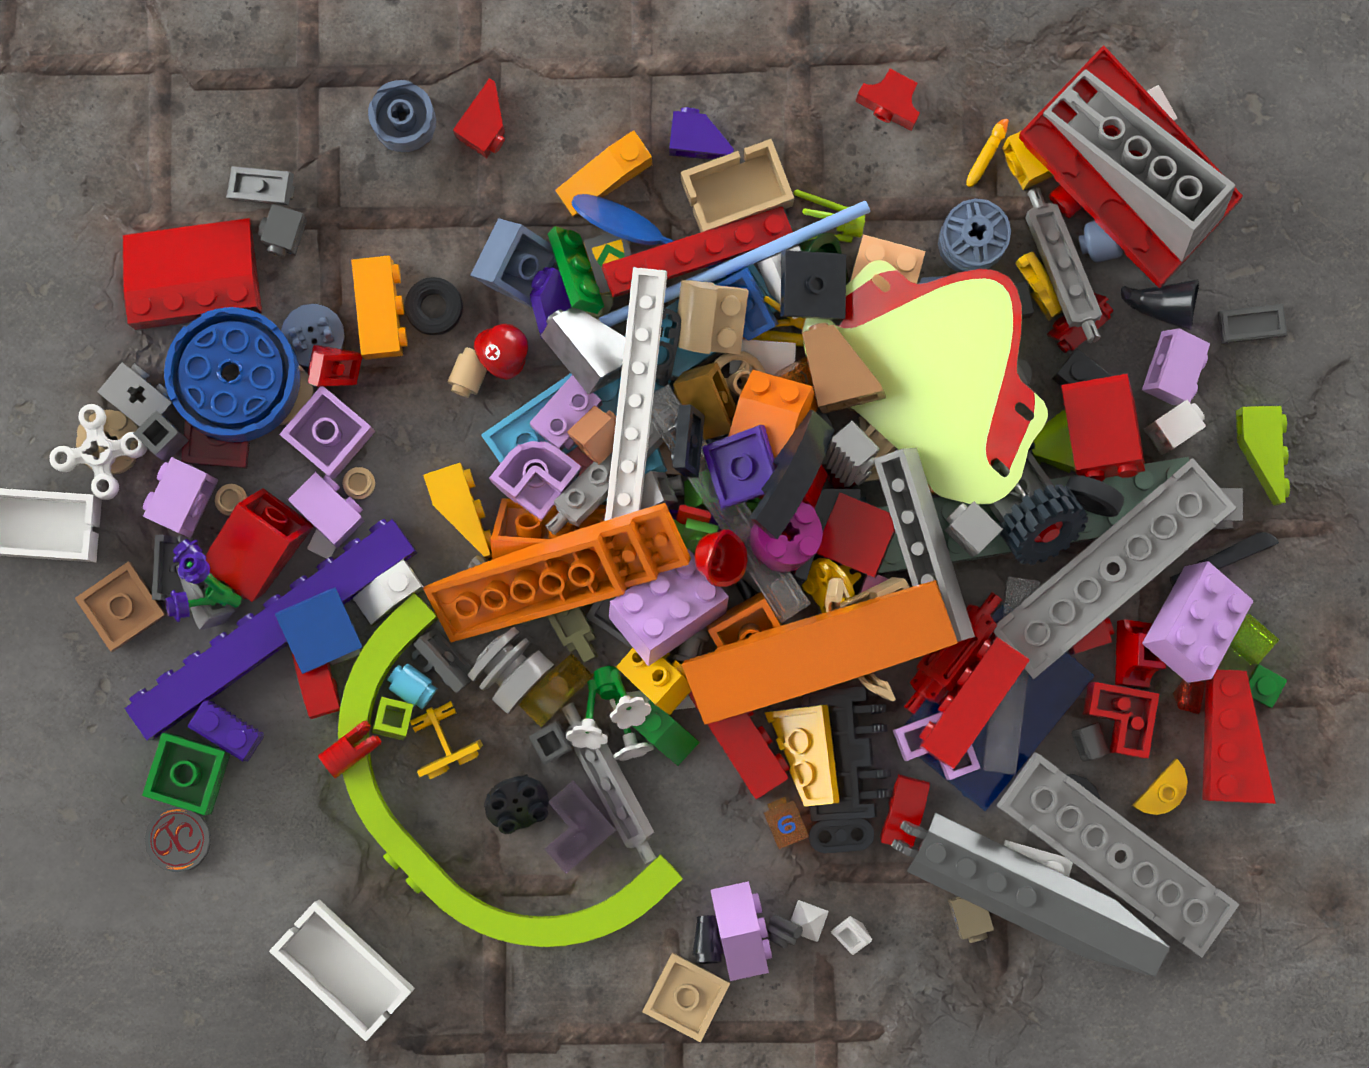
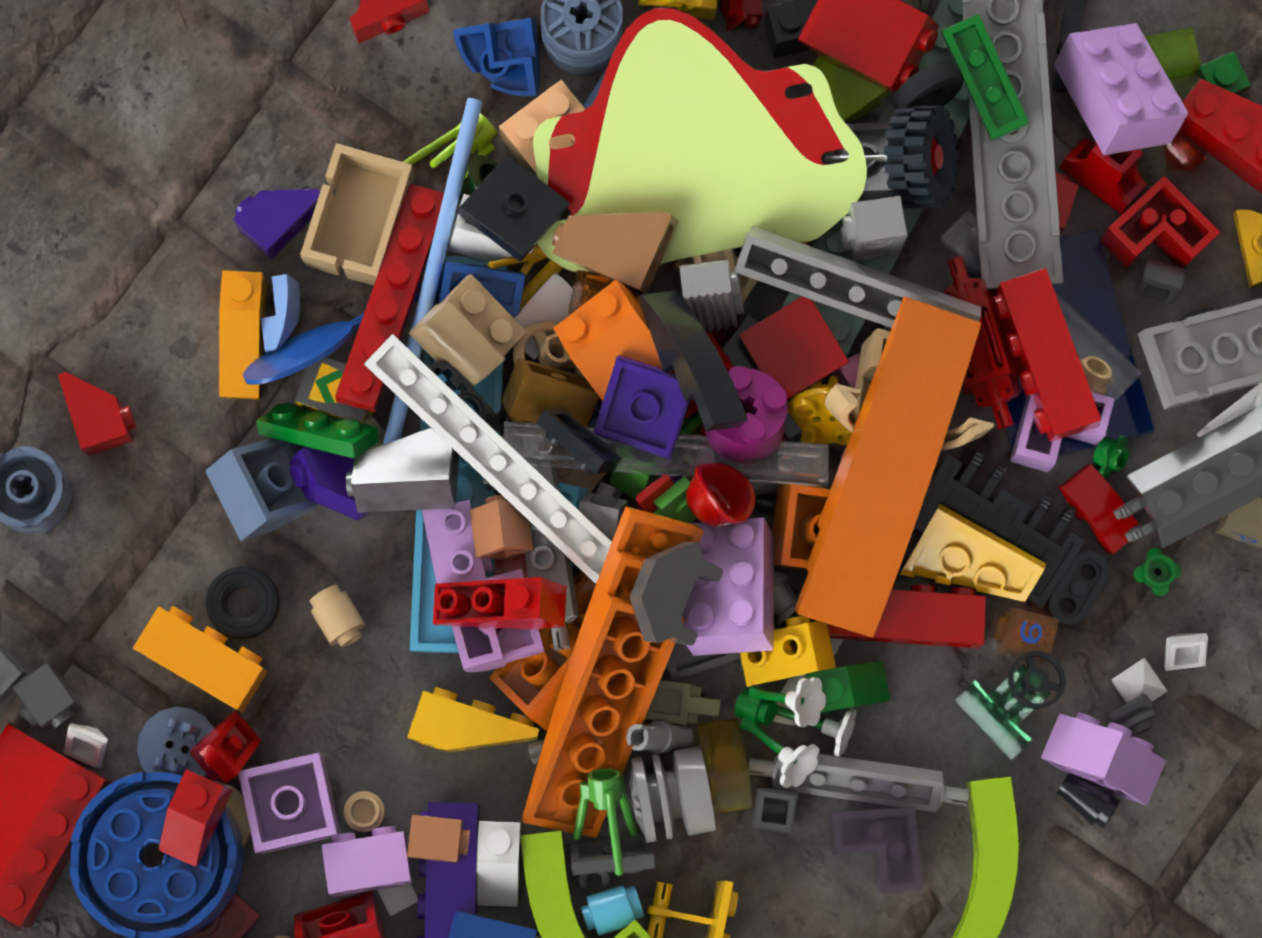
camera: 55 degrees left, 5 degrees down
(270, 378) = (193, 817): none -> red slope
(272, 277) = (86, 744): none -> white slope
(371, 542) = (437, 839): none -> nougat brick
(481, 624) = (605, 789): none -> bright green plant
(502, 350) = (340, 565): red helmet -> none
(516, 803) = (812, 890): black plate -> none
(541, 634) = (659, 737): none -> light grey pin
(546, 470) = (501, 603): none -> red slope
(631, 567) = (664, 591): none -> dark grey piece
(644, 189) = (287, 307): none -> light blue slope
(686, 997) = (1130, 863): tan plate -> none
(730, 844) = (1012, 702): none -> clear green piece
(898, 886) = (1168, 569): none -> green plate
(918, 201) = (503, 54): none -> blue brick
(946, 793) = (1111, 455): none -> green plate
(988, 743) = (1097, 374): none -> tan plate
(1130, 526) = (985, 77): none -> green plate

